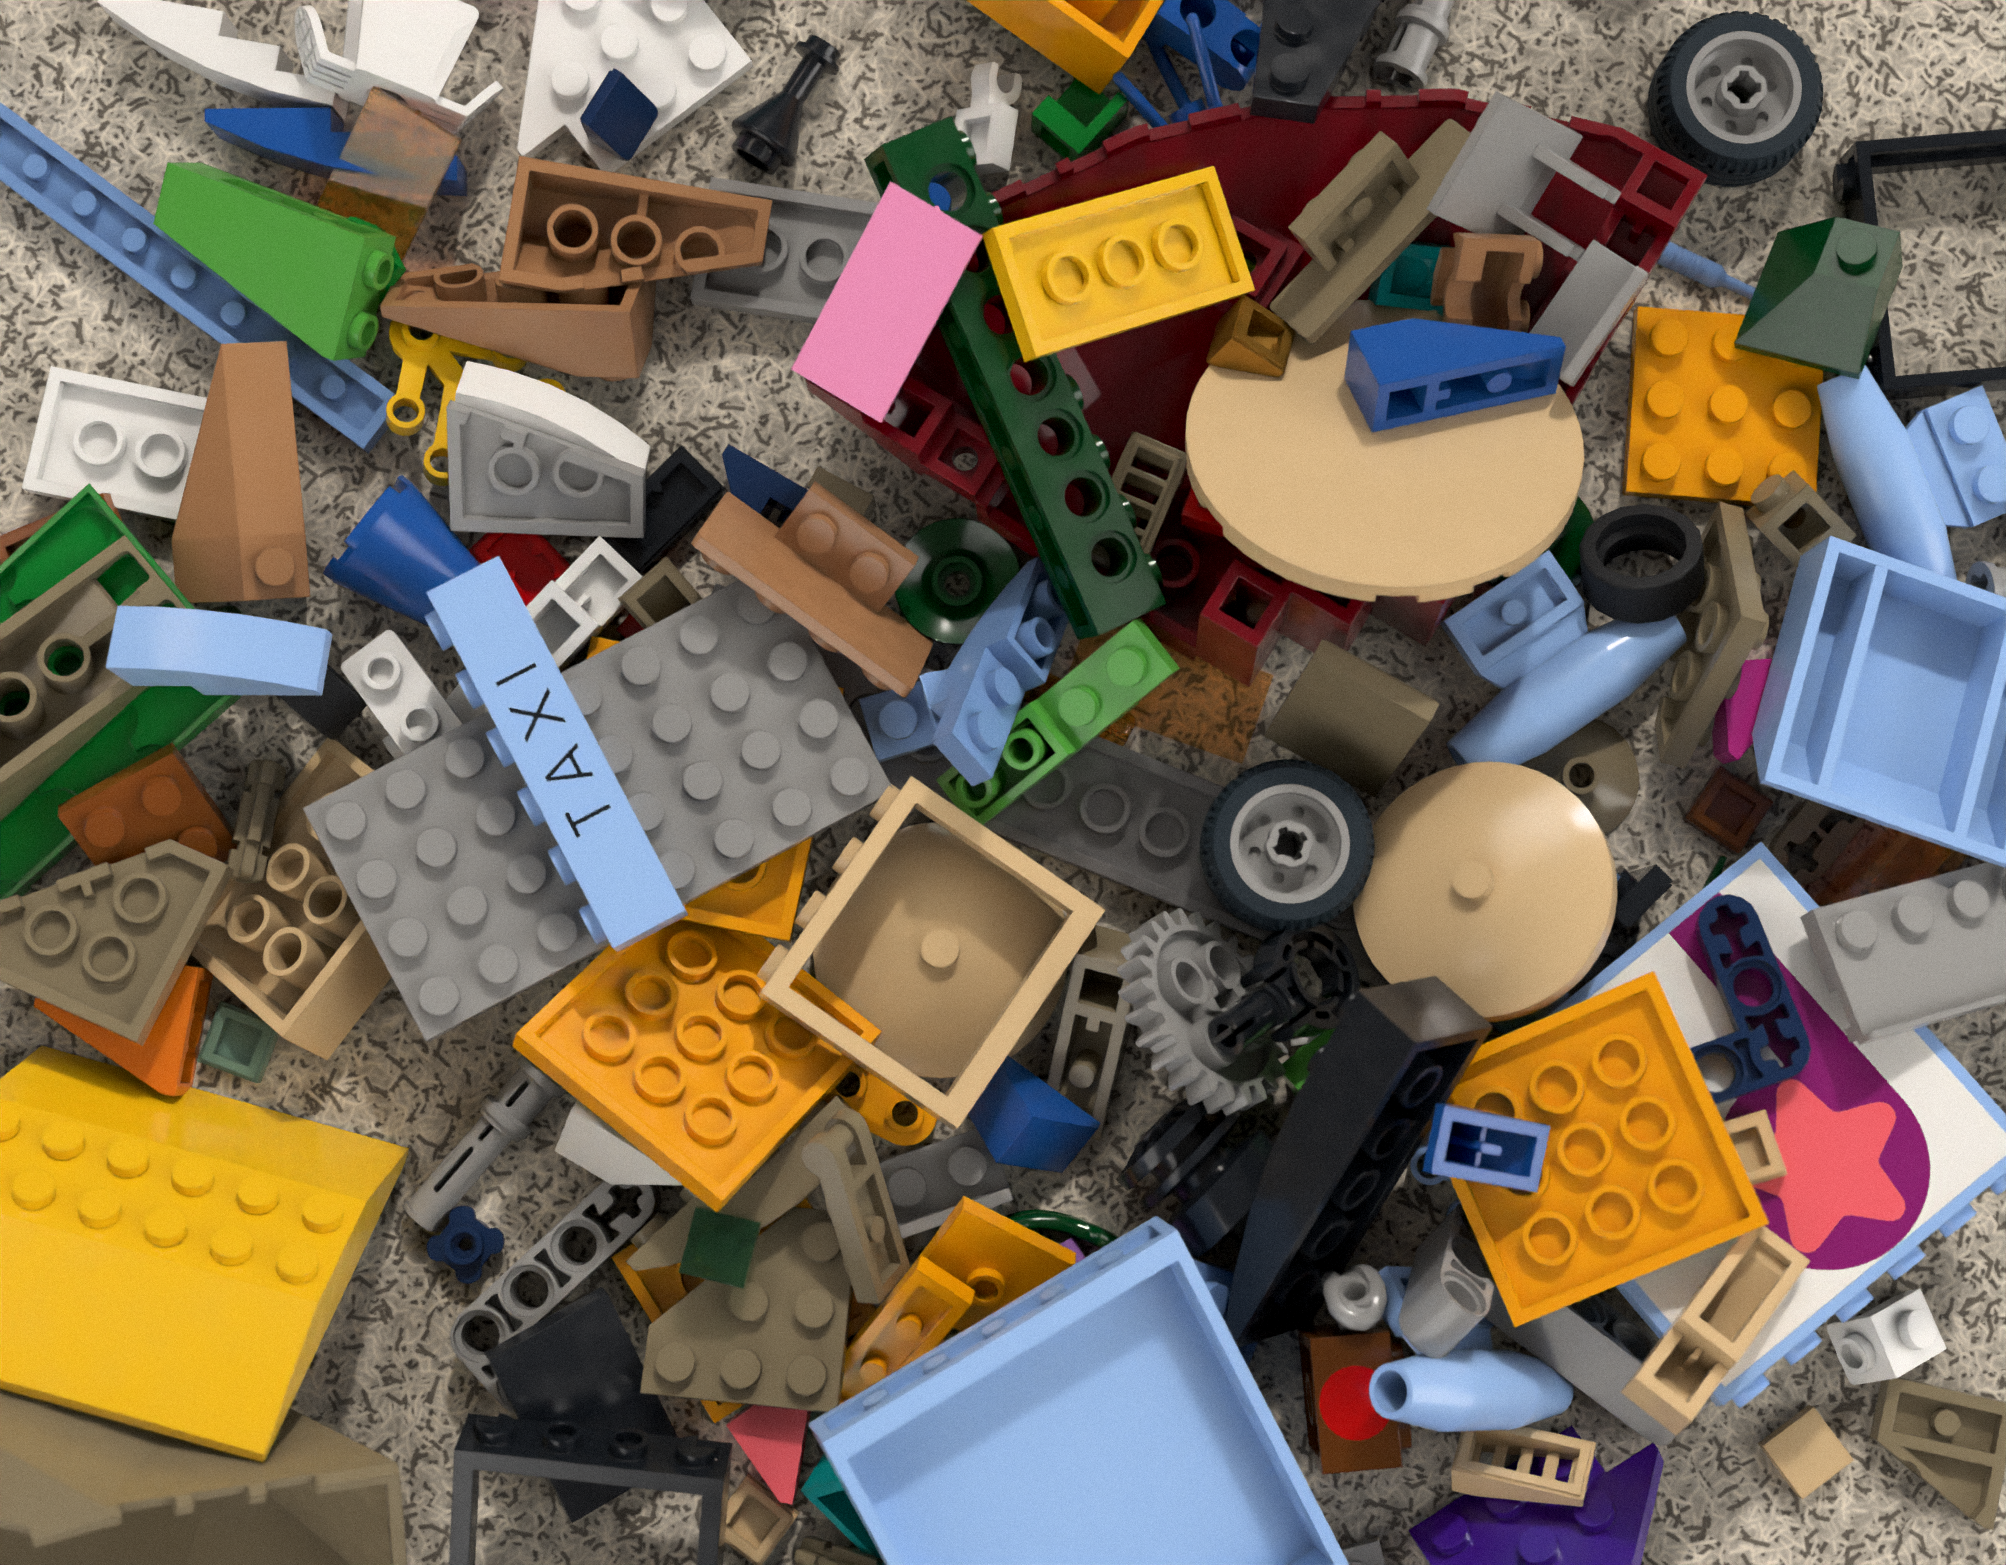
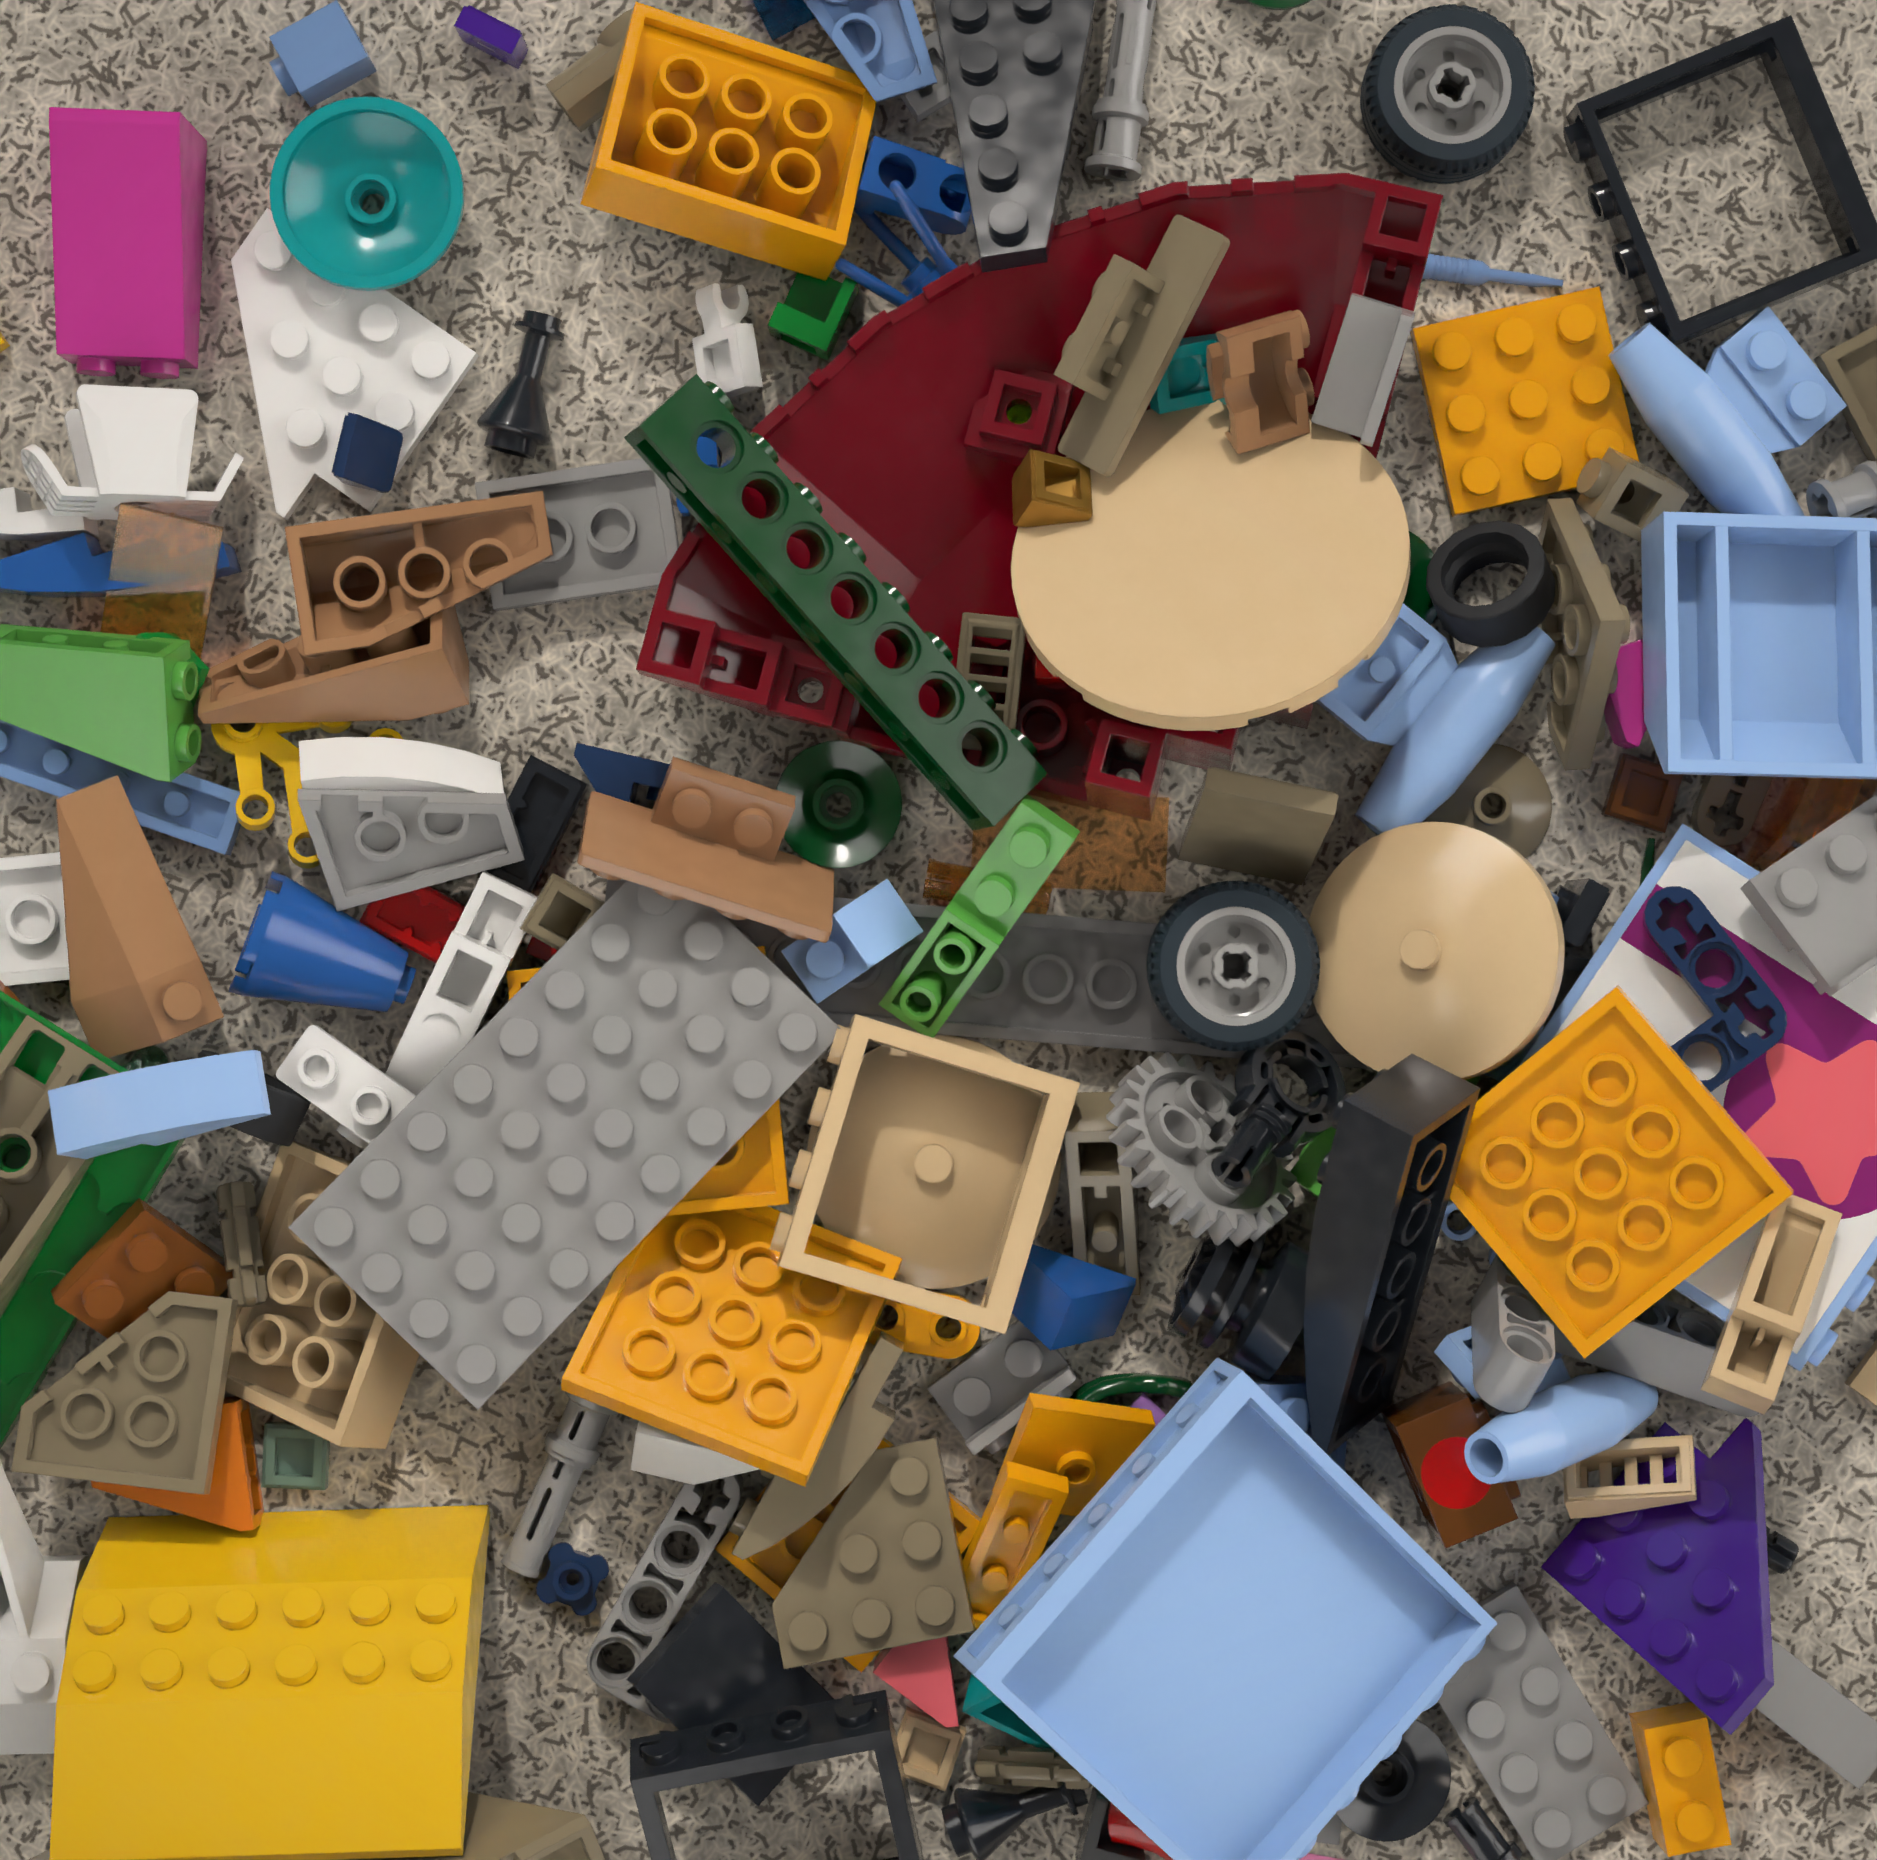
camera: 20 degrees left, 5 degrees up
(556, 754) = (513, 1103): light blue brick -> none
(720, 1247) = (817, 1514): clear green plate -> none
(850, 494) = (702, 754): dark tan tile -> none
(858, 1205) = (933, 1433): dark tan plate -> none
(886, 302) = (691, 573): bright pink piece -> none
(994, 667) = (900, 887): medium blue slope -> none
(1117, 262) = (901, 462): yellow plate -> none
(1355, 1297) = (1426, 1373): light grey piece -> none
(1444, 369) = (1245, 466): blue slope -> none
(1486, 1147) = (1506, 1201): blue slope -> none
(1507, 171) = (1247, 256): light grey plate -> none
(1756, 1147) = (1760, 1120): tan tile -> none
(1823, 295) = (1588, 269): dark green slope -> none

